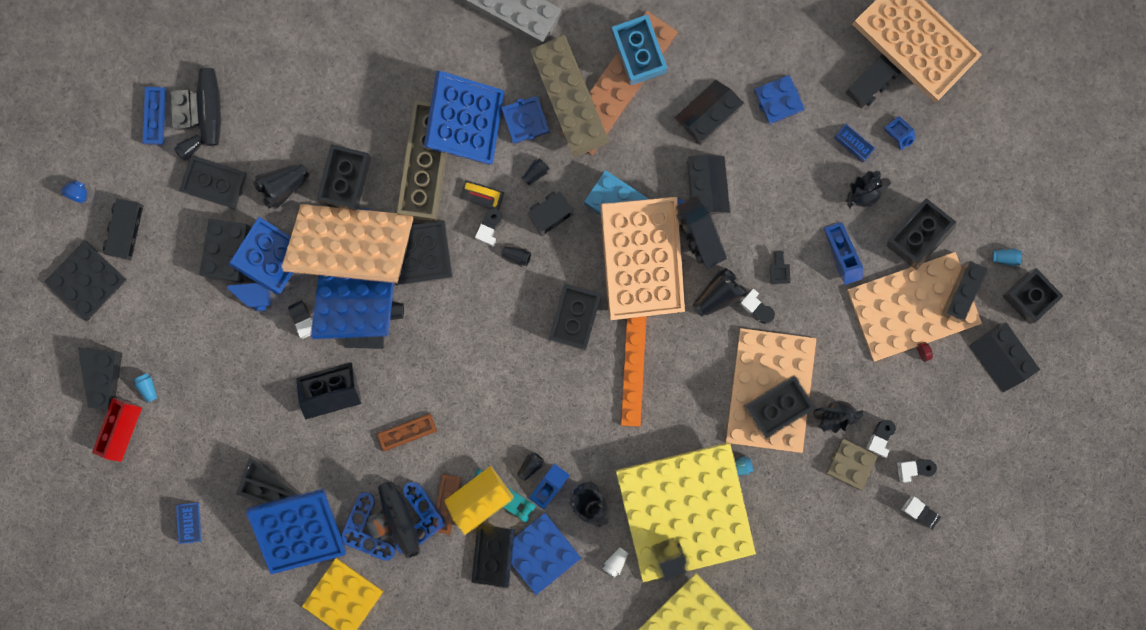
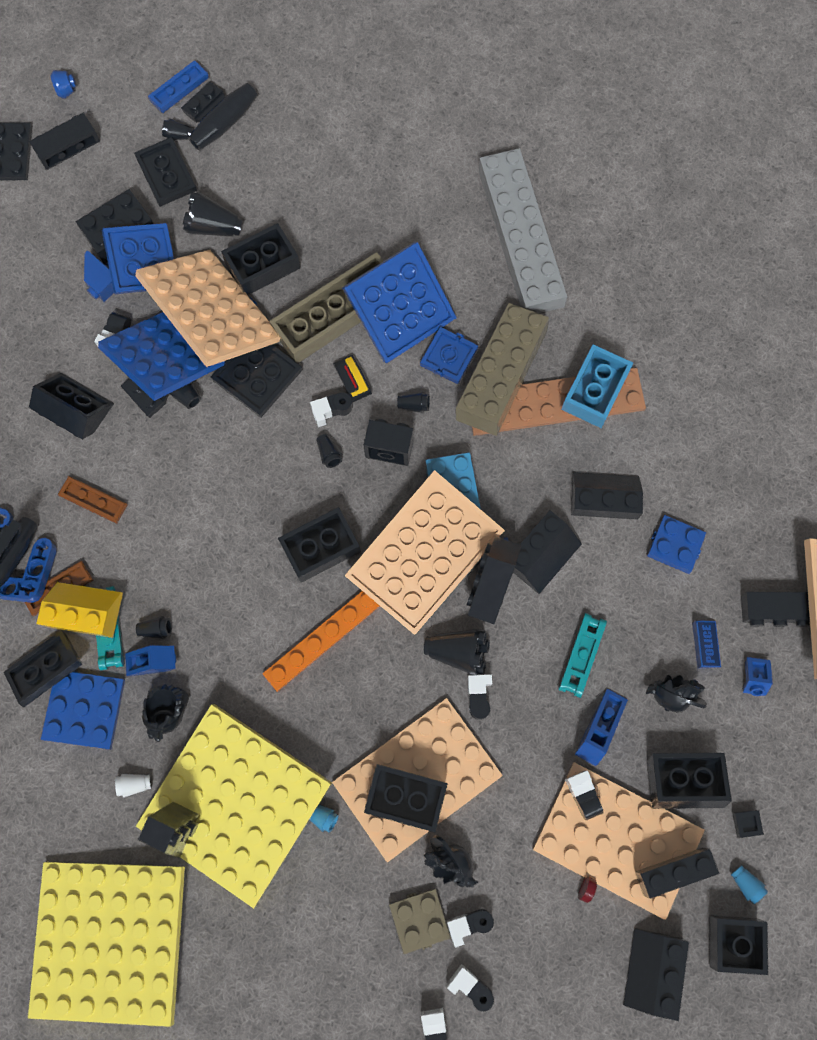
camera: 50 degrees right, 10 degrees down
(779, 272) = (529, 685): black plate -> none
(791, 222) = (582, 655): none -> teal plate
(873, 301) = (585, 795): none -> leg
(975, 223) = (748, 823): none -> black plate

